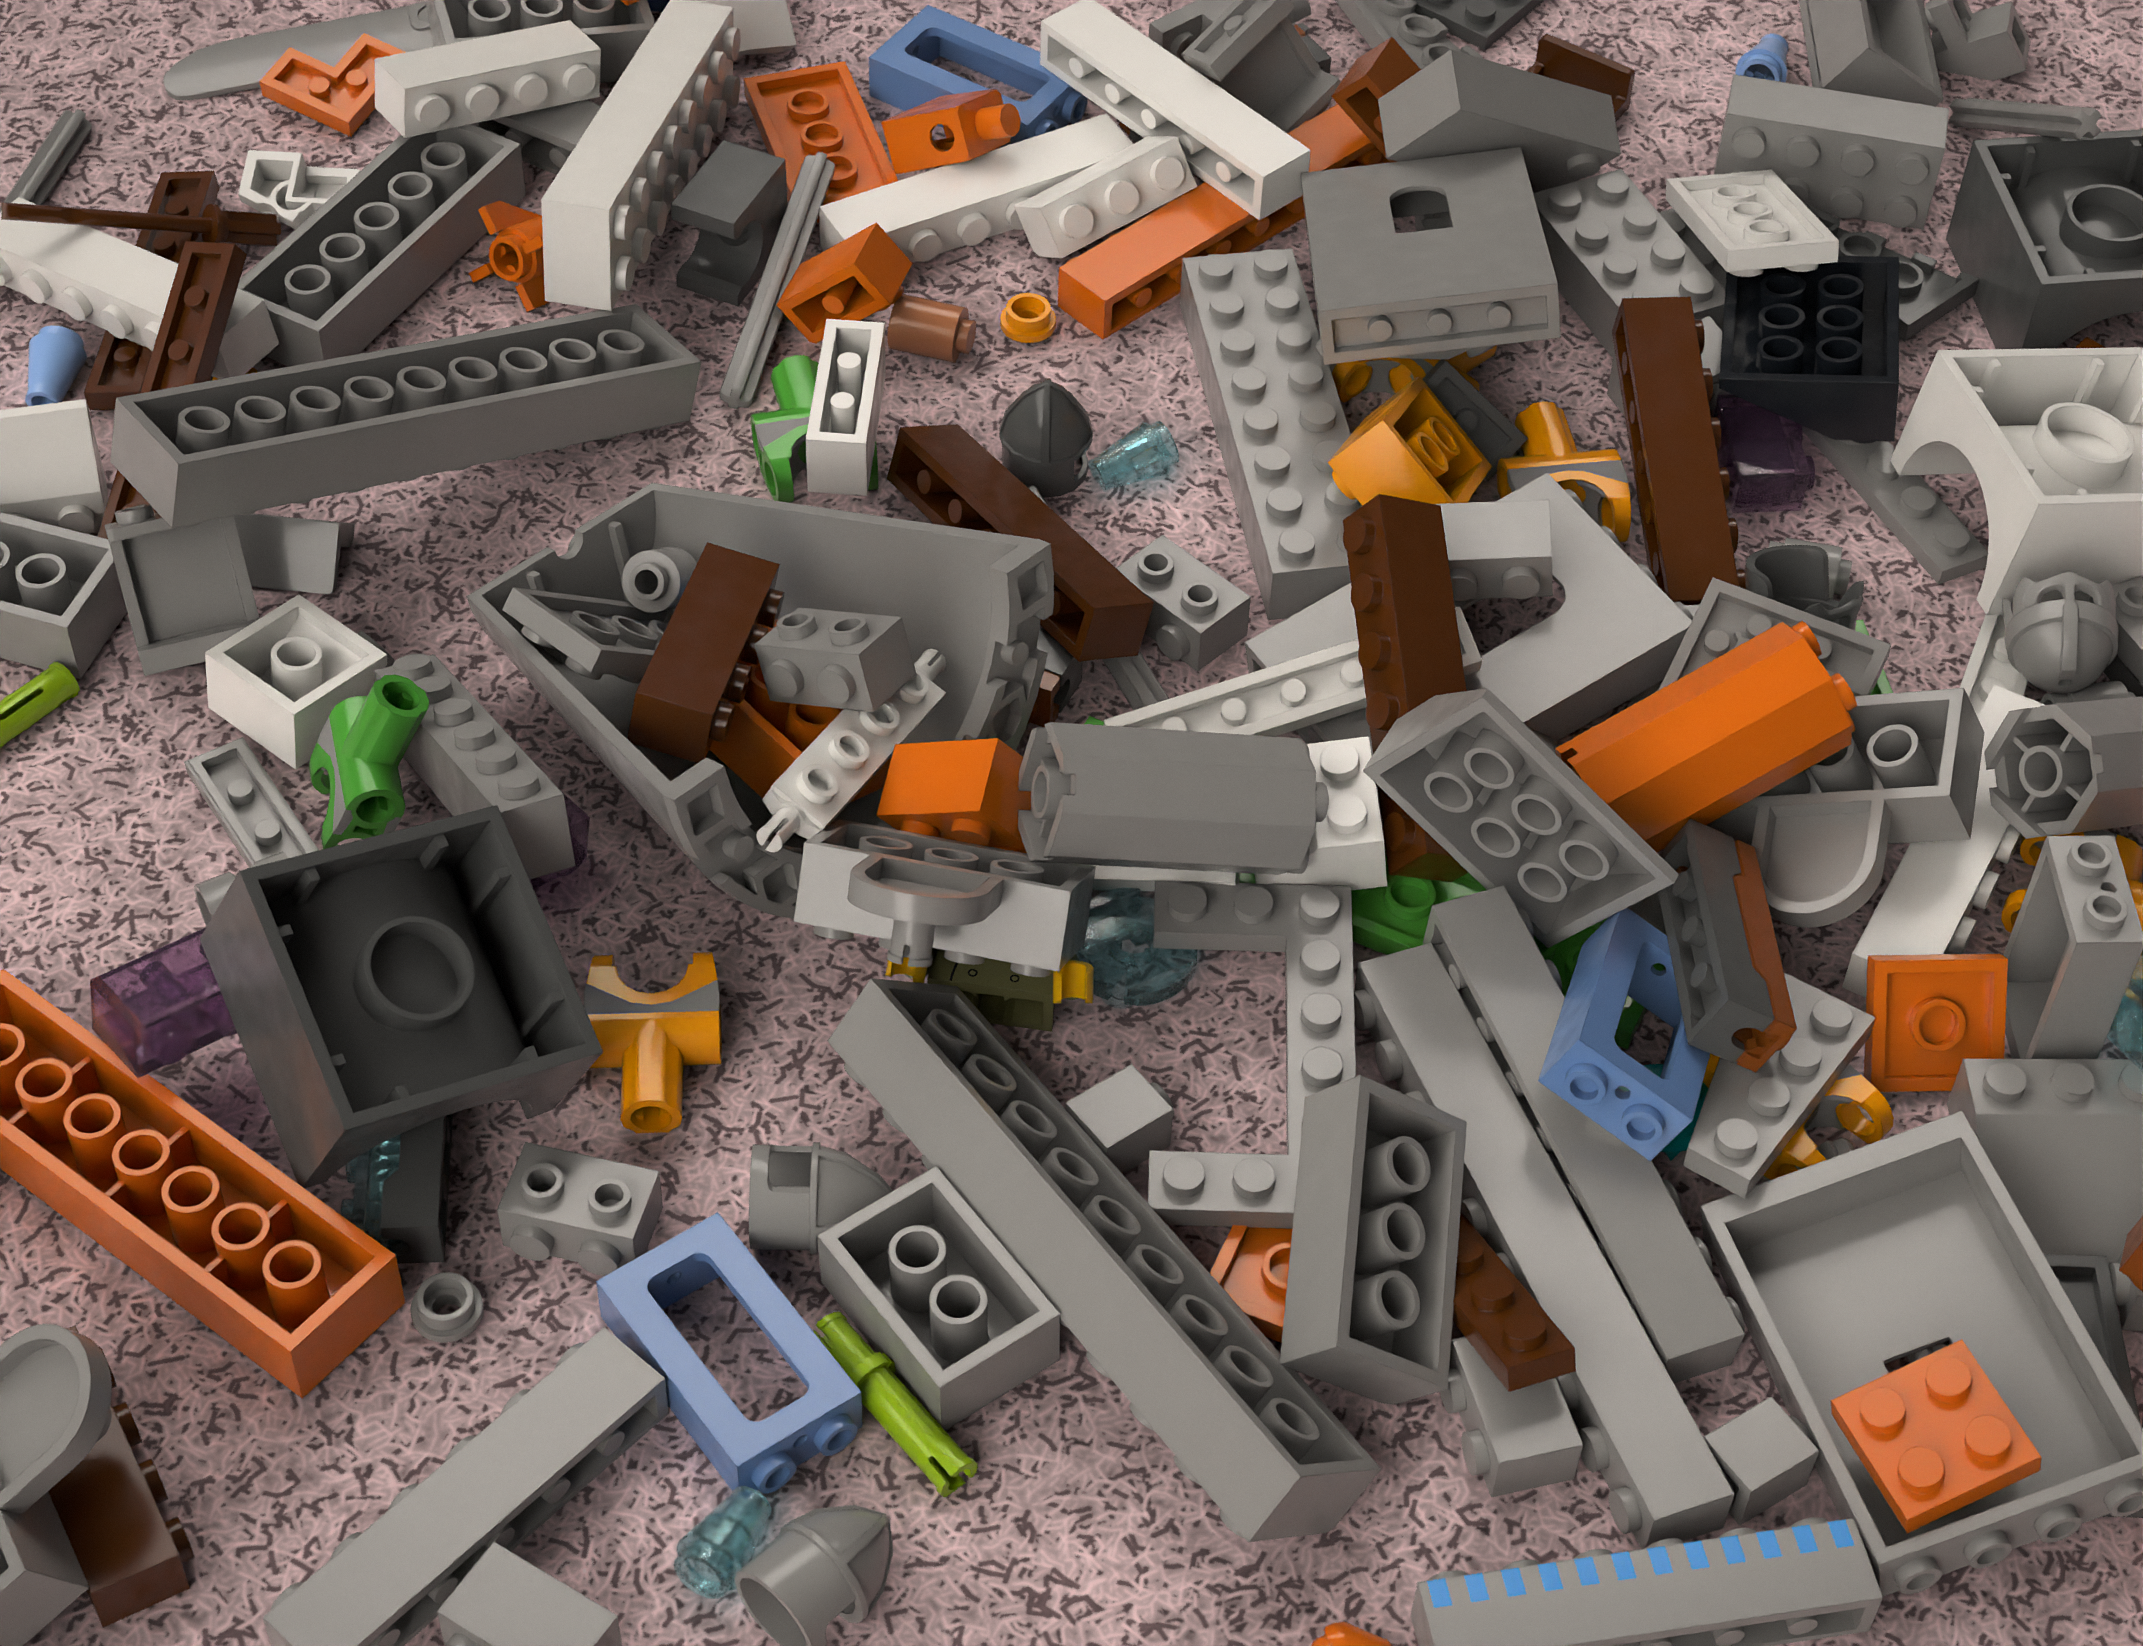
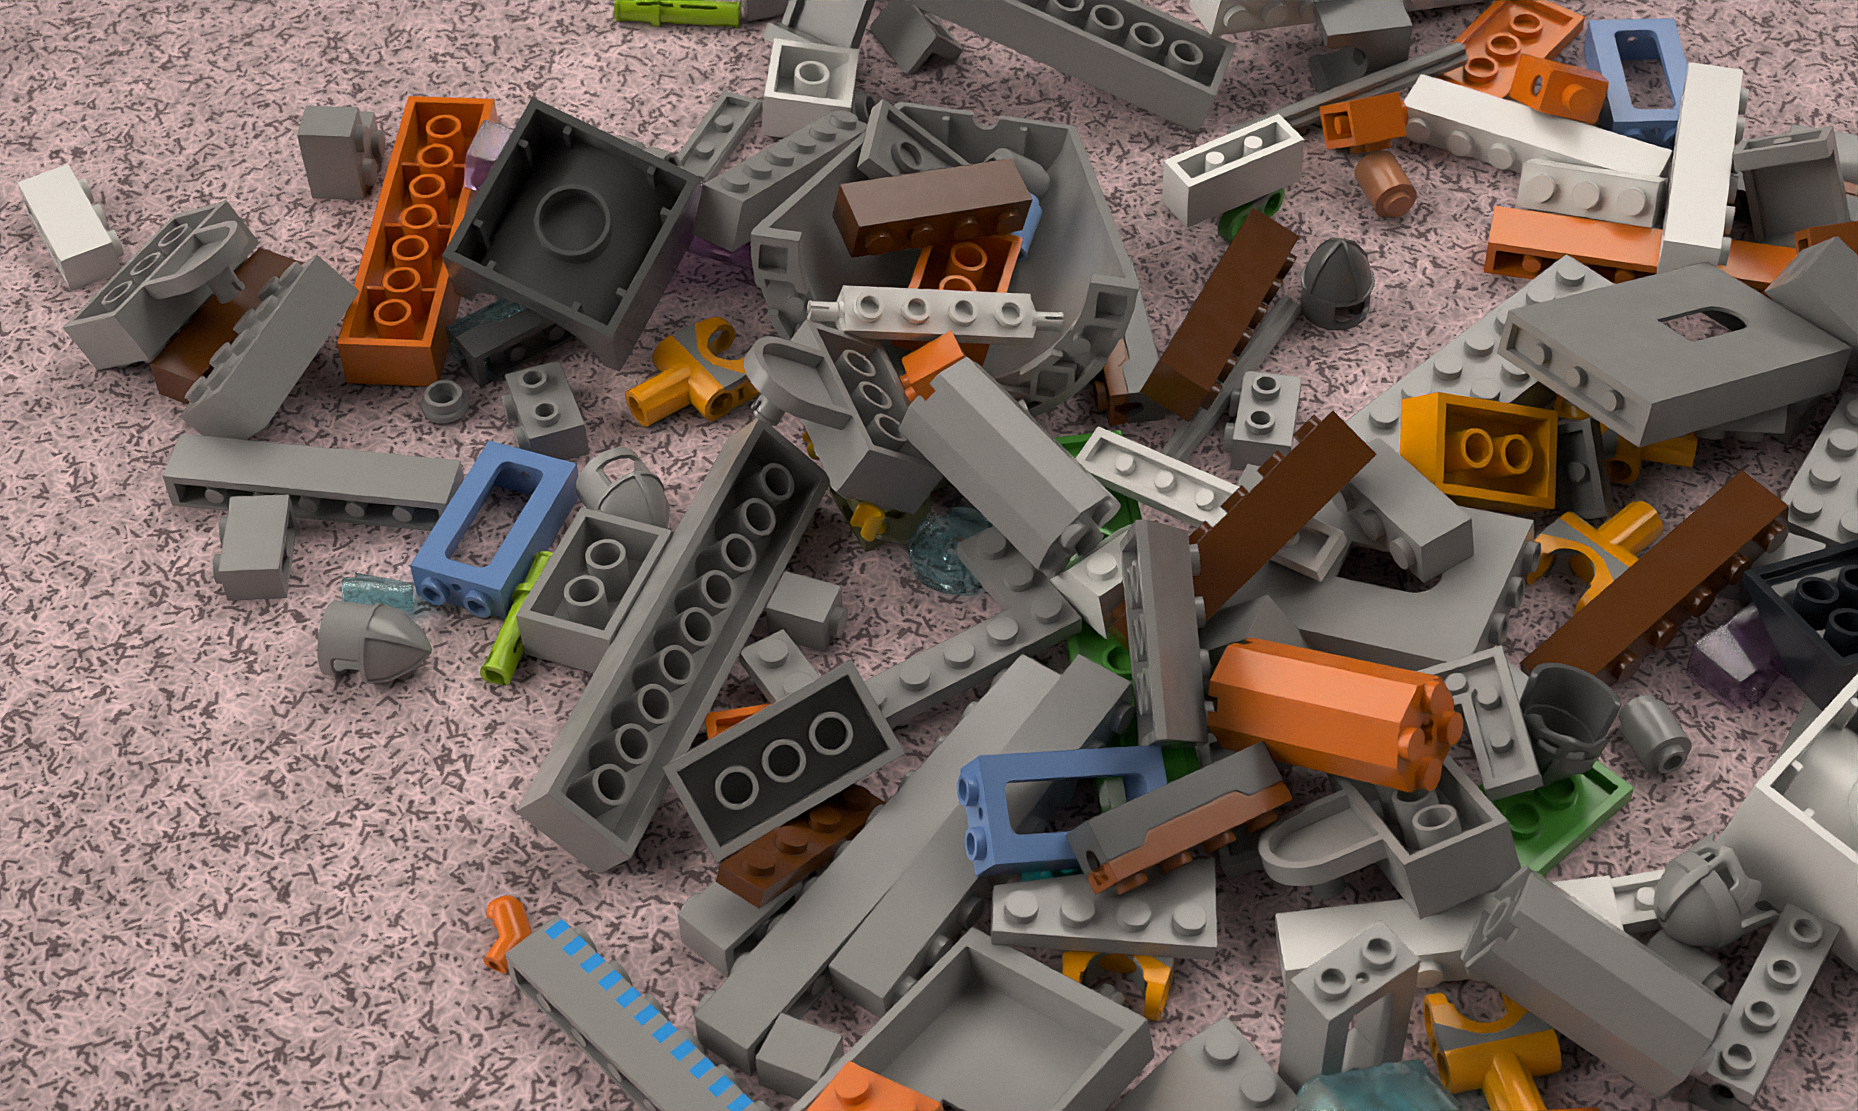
camera: 60 degrees right, 0 degrees up
(229, 1440) = (269, 351): none -> light grey piece
(362, 758) = (771, 122): bright green connector -> none
(835, 659) = (976, 262): light grey brick -> none
(1028, 318) = (1453, 225): light orange plate -> none
(1136, 456) = (1381, 338): clear light blue cone -> none
(1932, 1017) = (1251, 983): orange plate -> none

